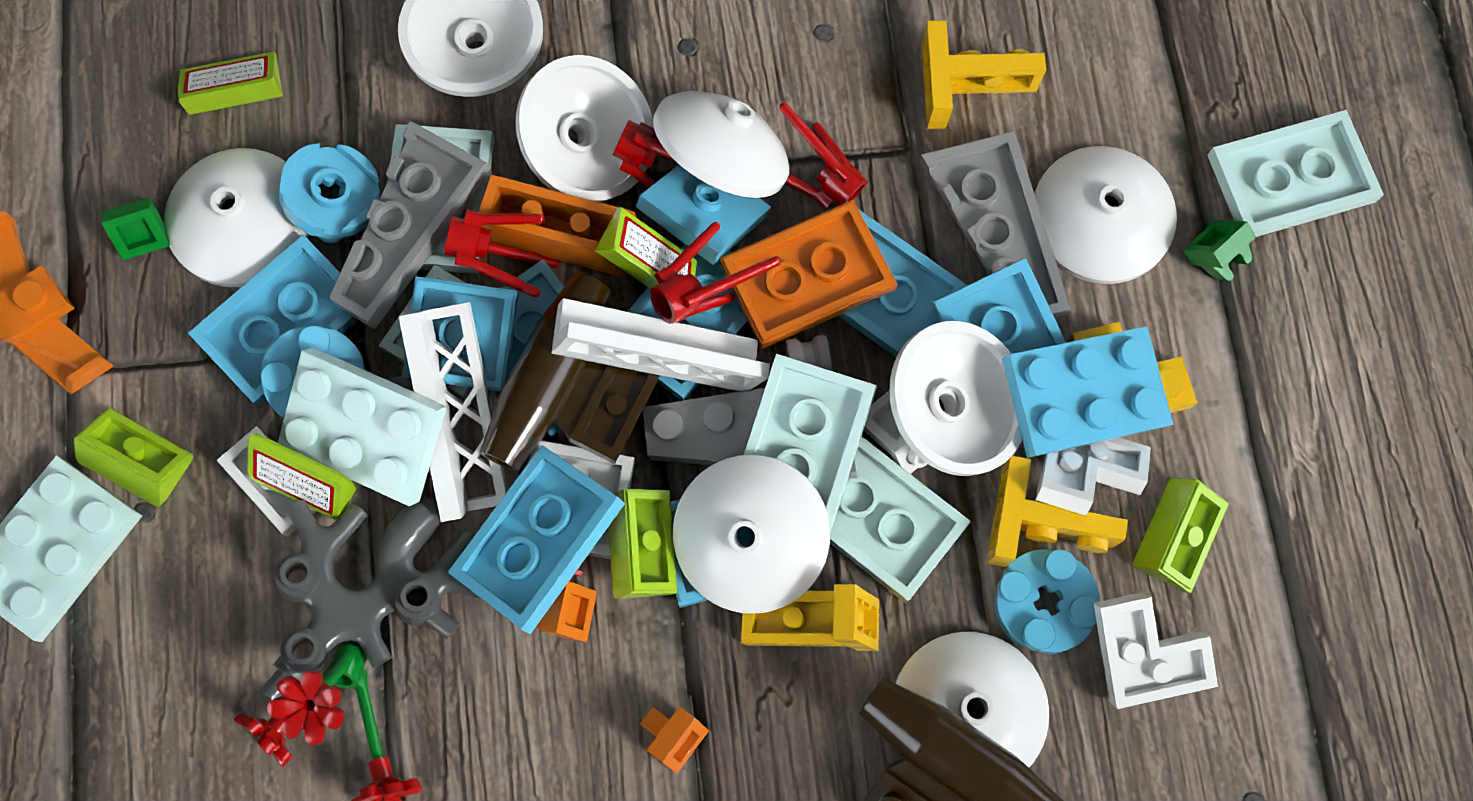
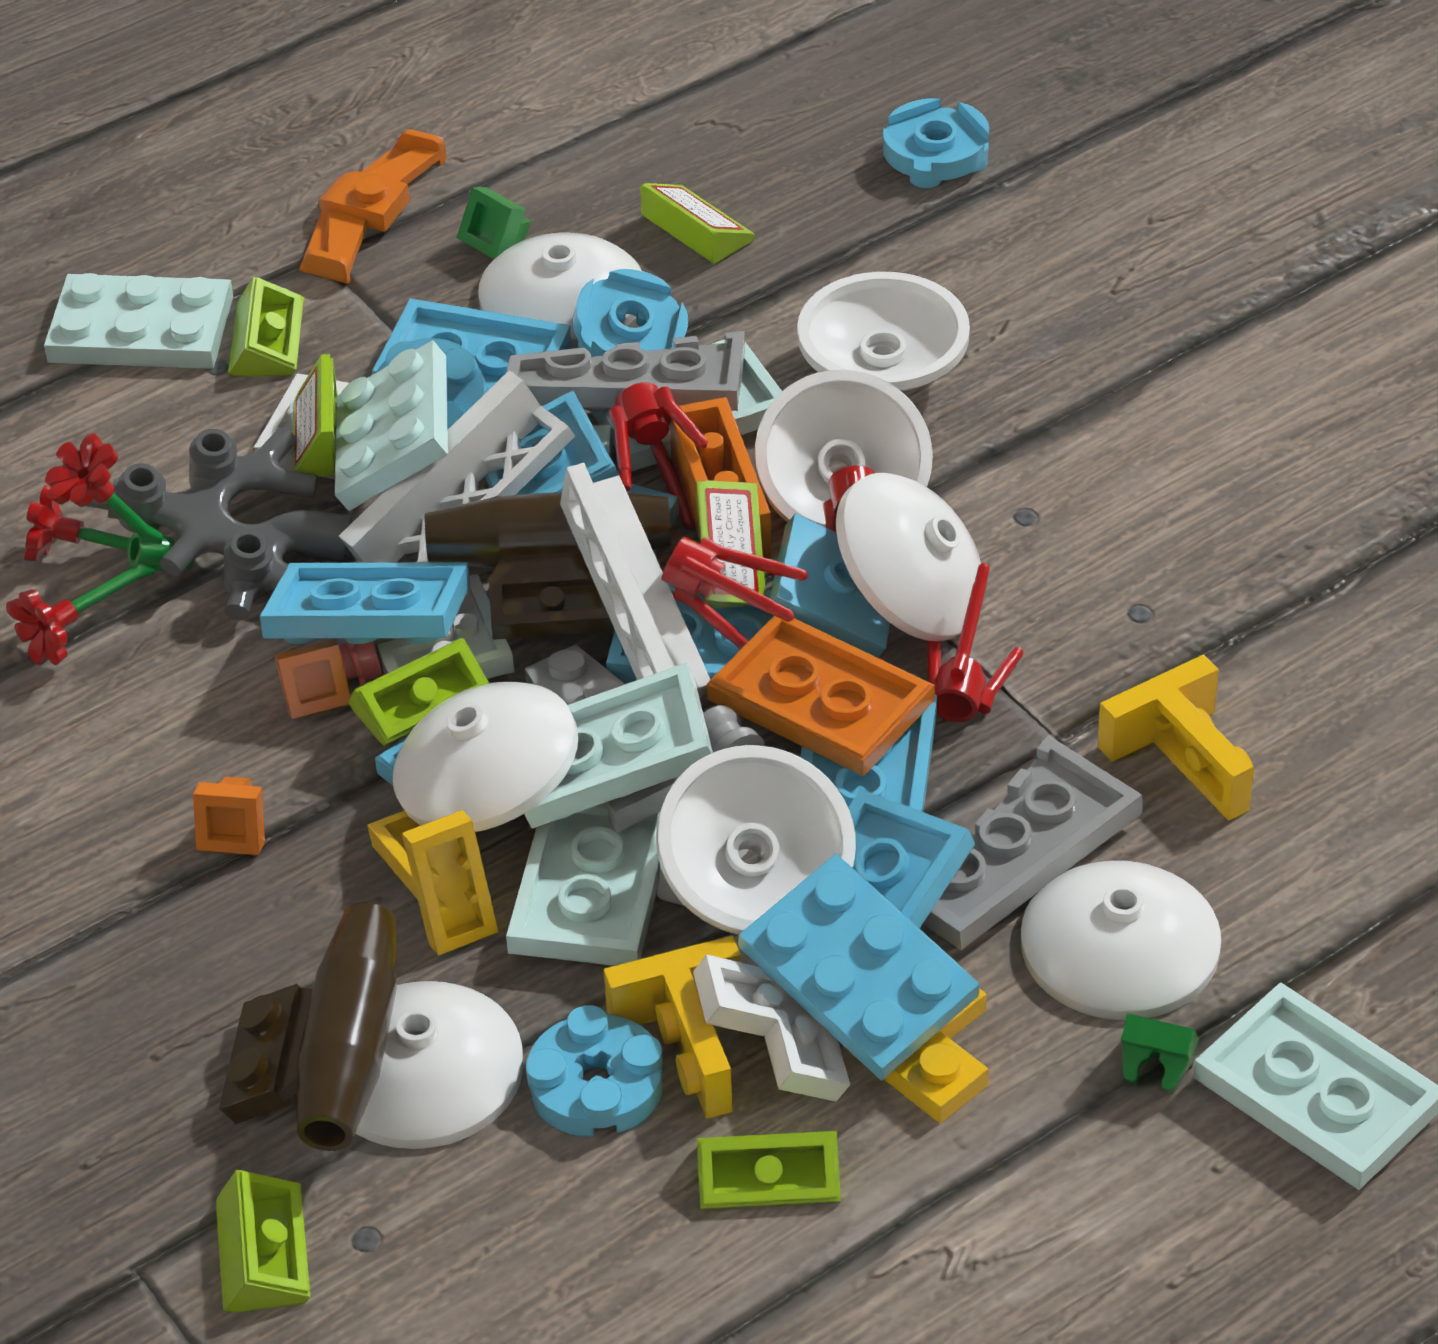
camera: 65 degrees right, 30 degrees down
(1142, 667) = (570, 1170): white plate -> none

